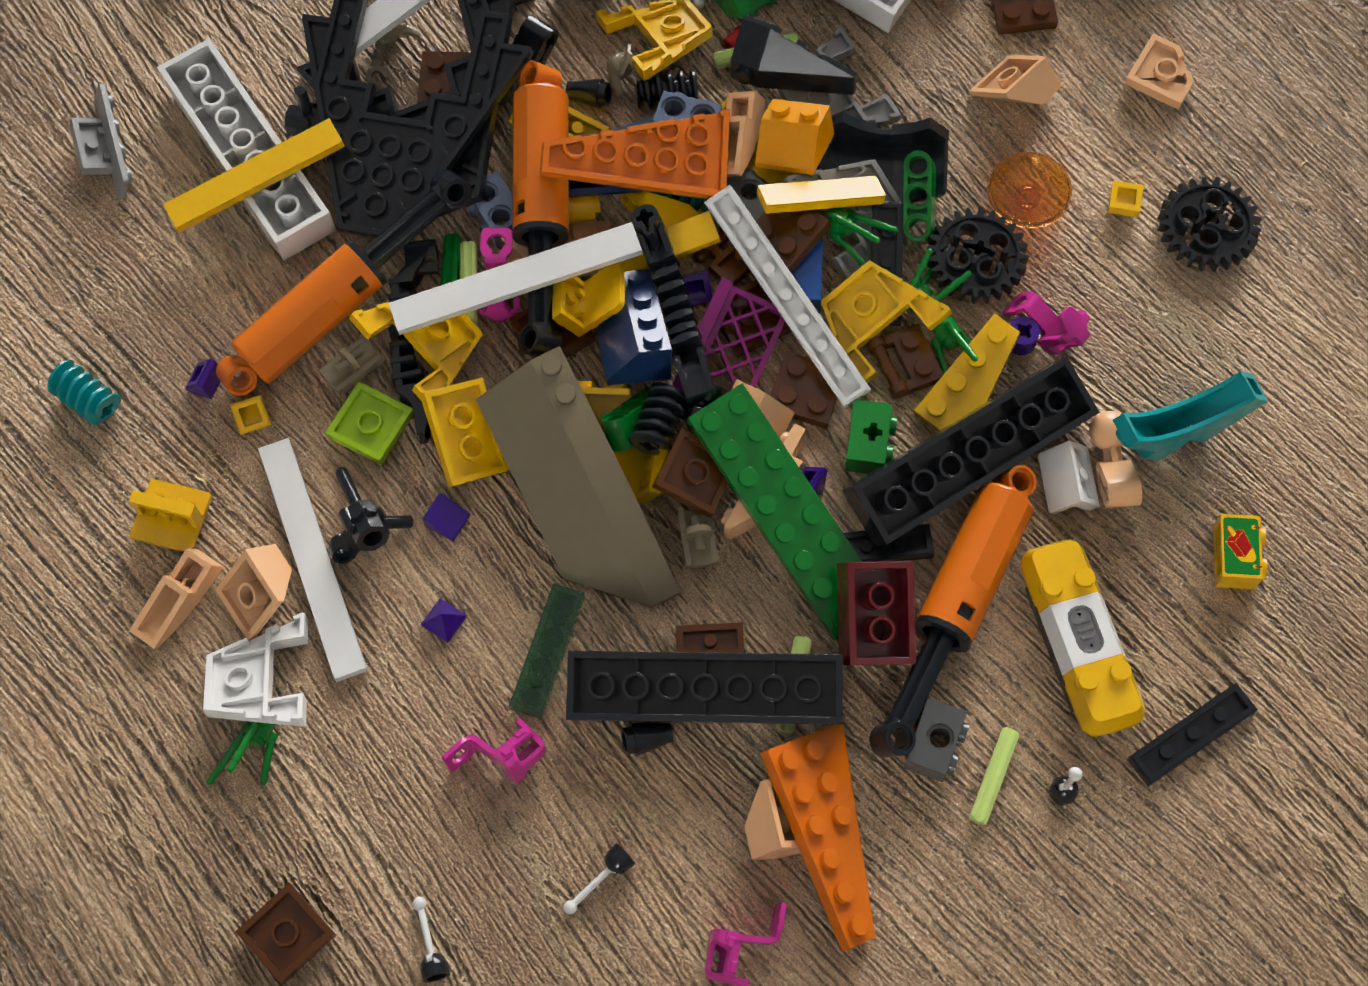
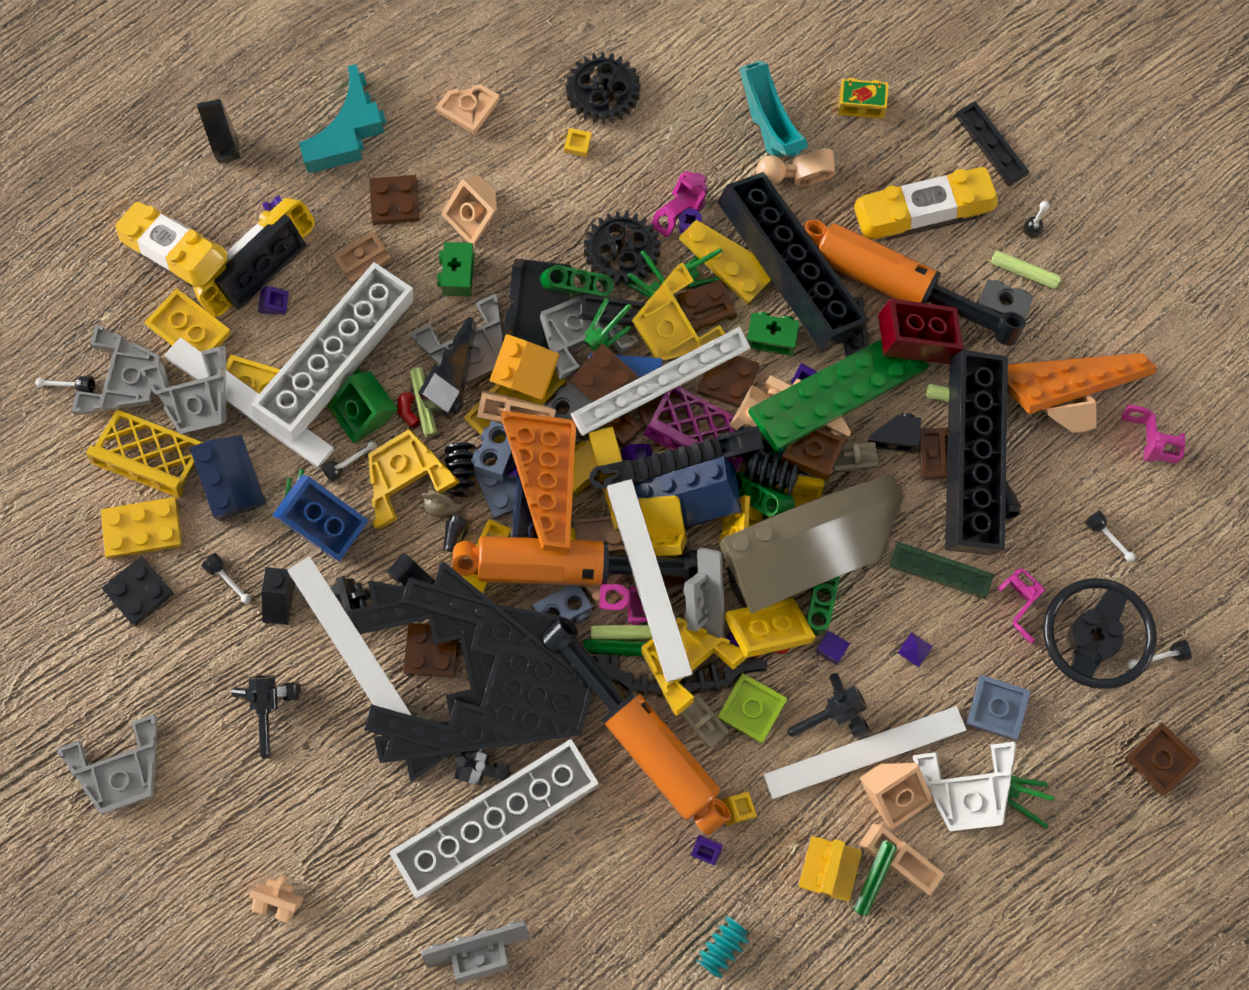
camera: 90 degrees left, 5 degrees up
(151, 561) = (875, 878): none -> green axle
(253, 175) = (535, 802): yellow tile -> none
(362, 719) = (998, 707): none -> sand blue plate
(434, 836) = (1105, 622): none -> black piece
(496, 345) = (706, 595): none -> light grey bracket
(496, 495) = (822, 609): none -> green beam
(735, 595) = (898, 434): none -> black slope
(820, 194) = (579, 349): tile -> none
(931, 72) = (460, 281): none -> green brick
(1029, 189) = (569, 206): clear orange piece -> none
(1068, 478) = (808, 201): white panel -> none

